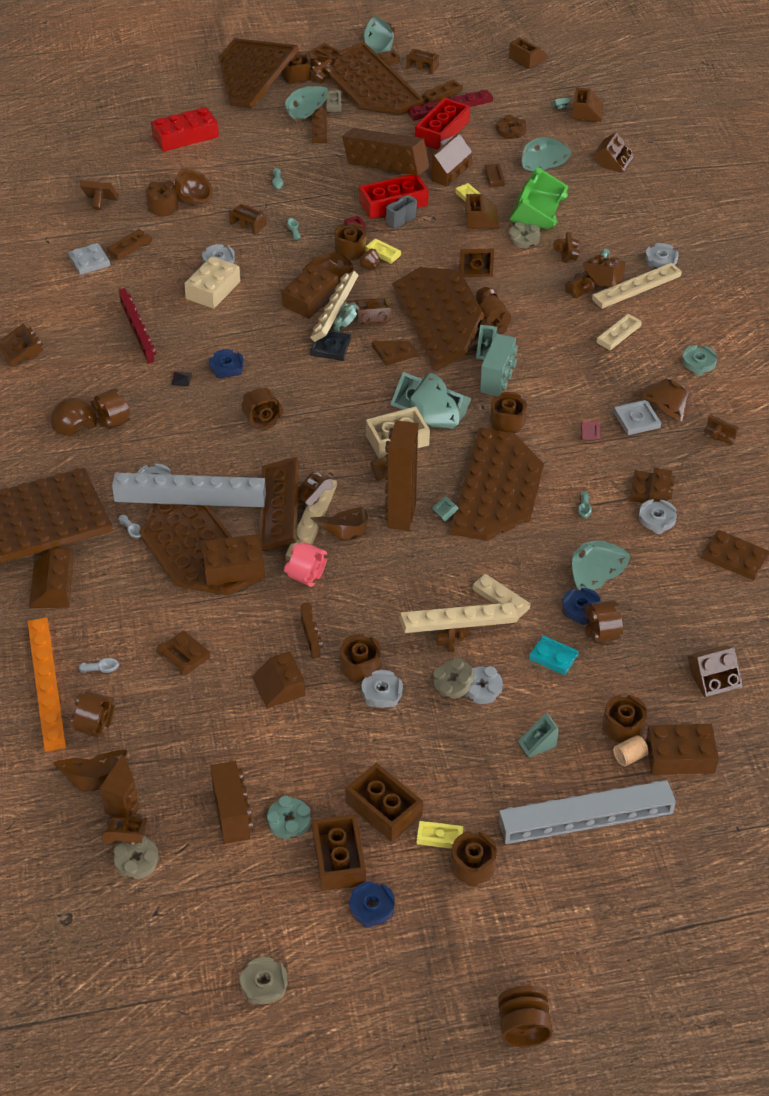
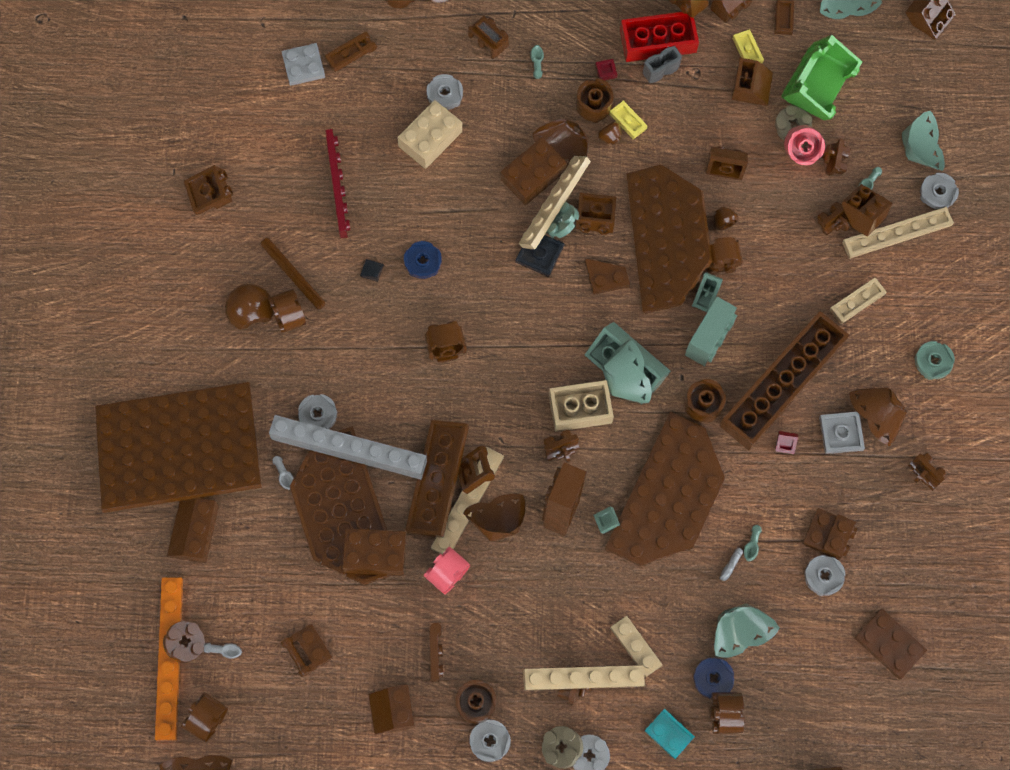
camera: 10 degrees right, 25 degrees up
(63, 654) = (191, 632): none -> plate
(103, 387) = (292, 273): none -> reddish brown axle
(533, 233) = (797, 137): none -> coral brick
(570, 522) = (727, 571): none -> light grey piece
(573, 389) = (784, 380): none -> reddish brown brick
(632, 231) = (920, 144): none -> sand green piece

